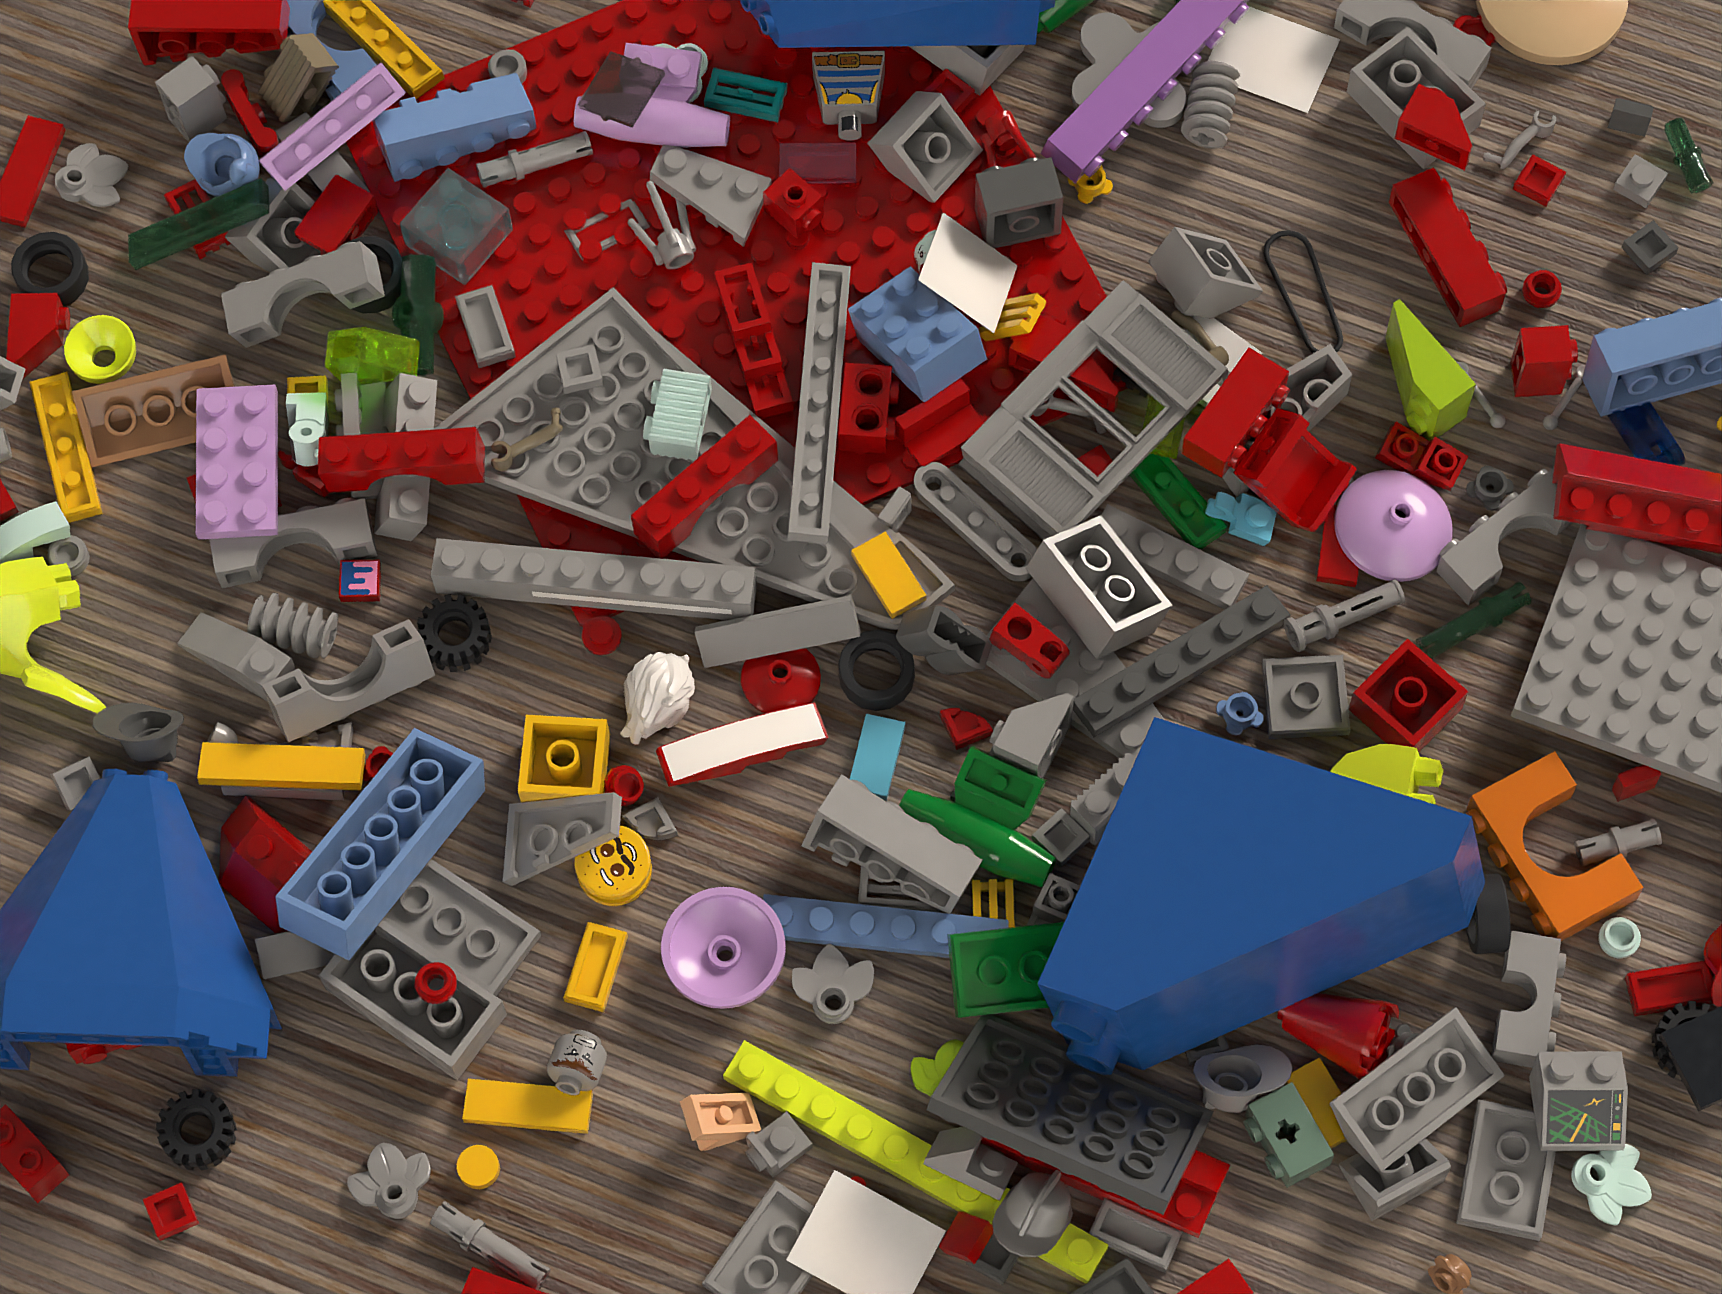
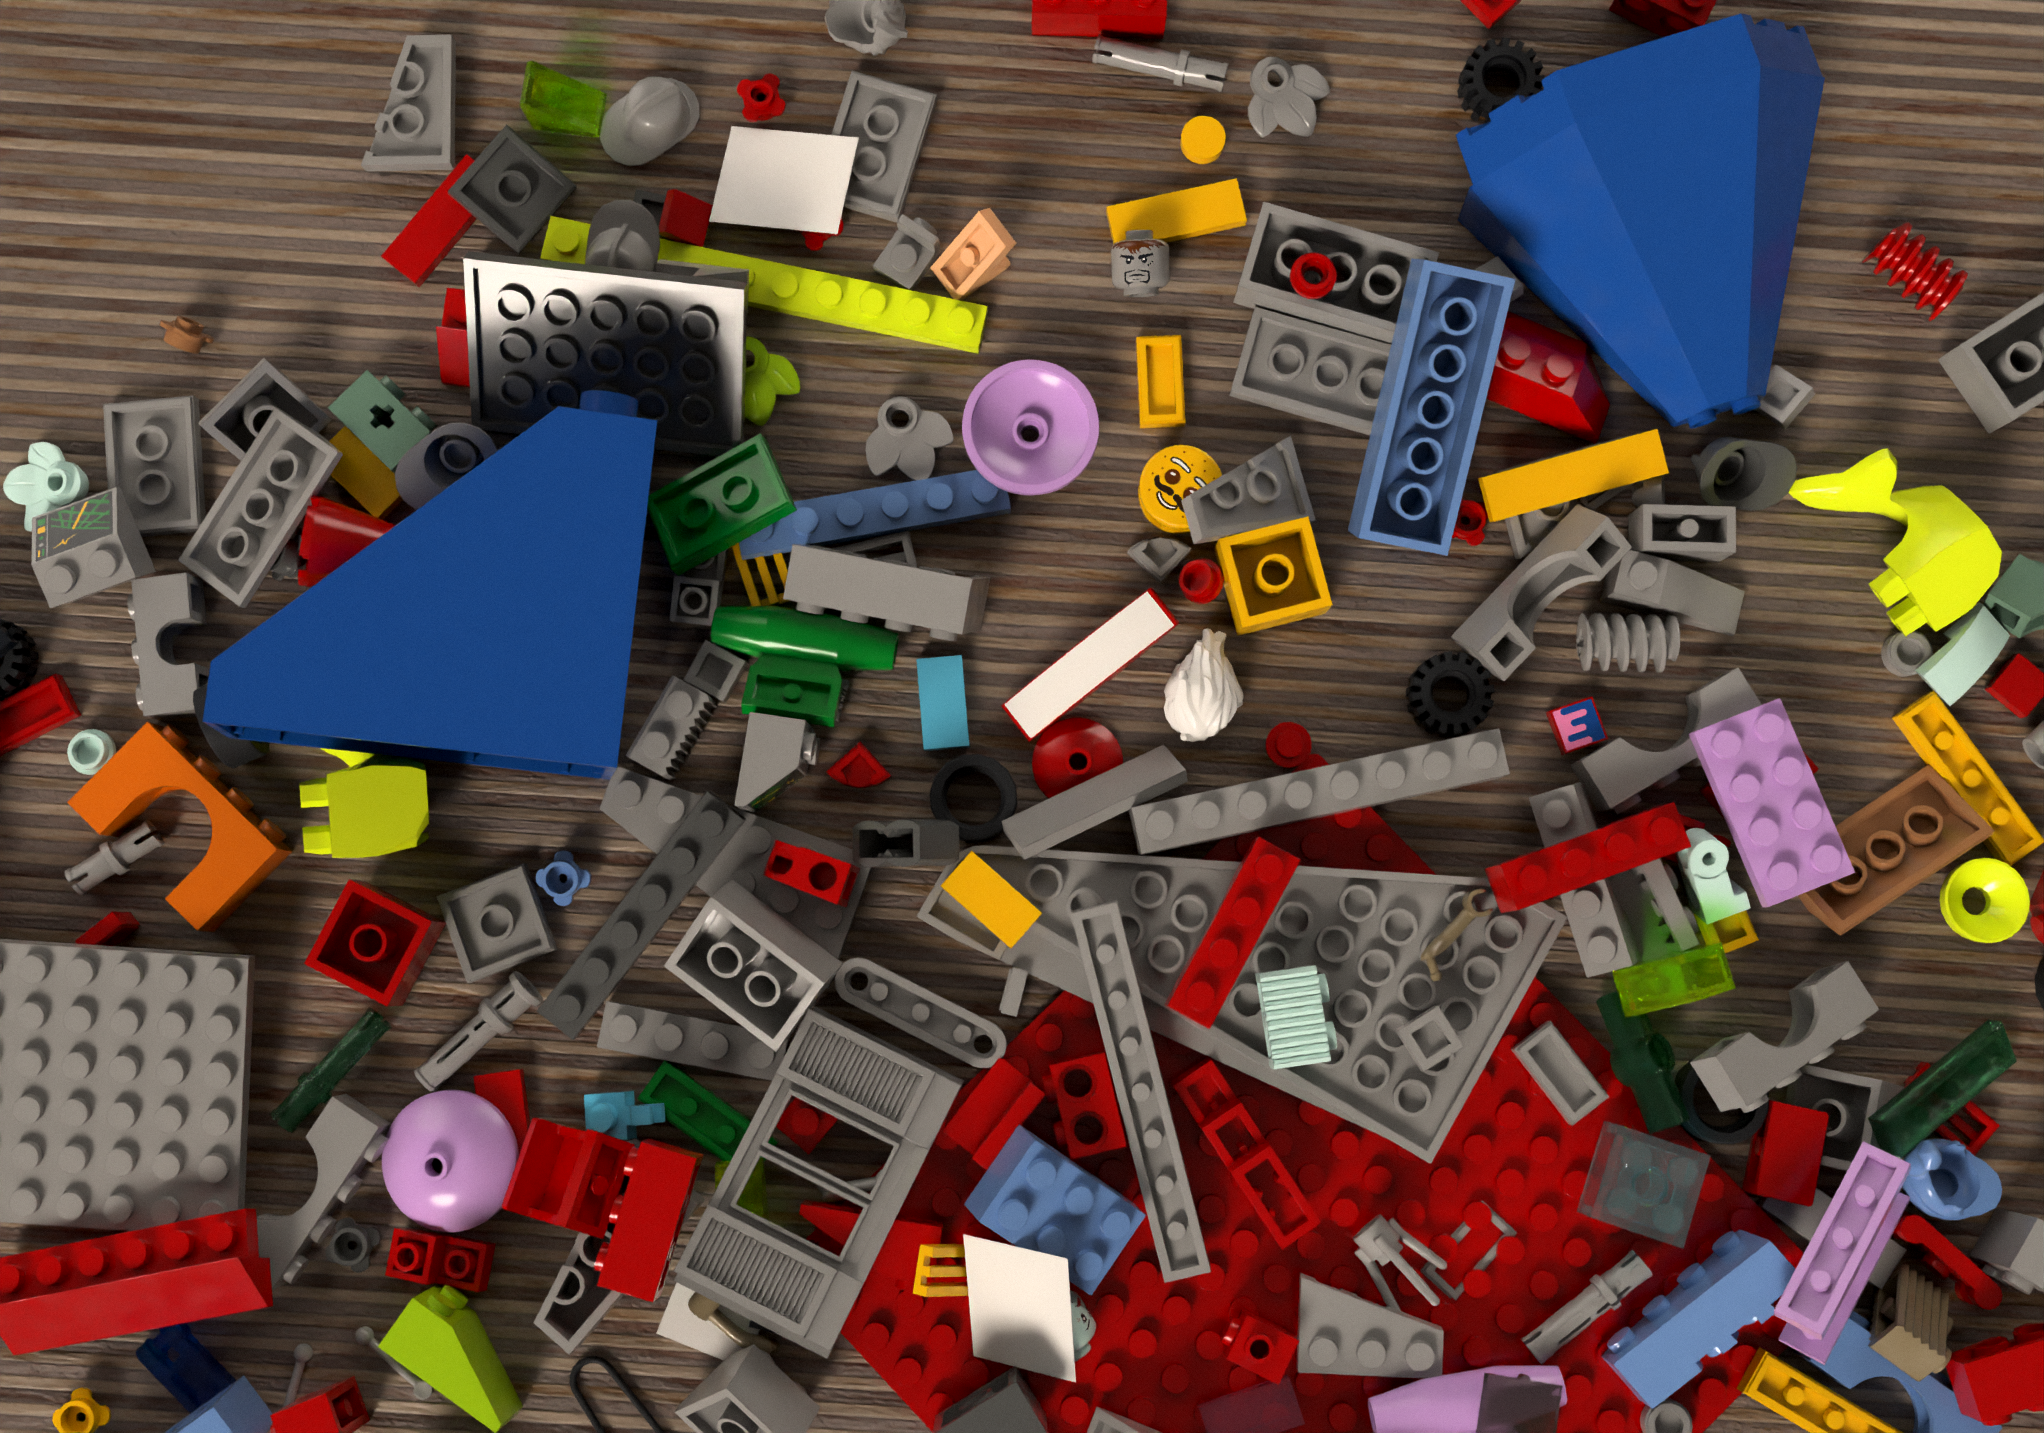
camera: 160 degrees right, 15 degrees up
(212, 693) = (1683, 532): none -> light grey brick

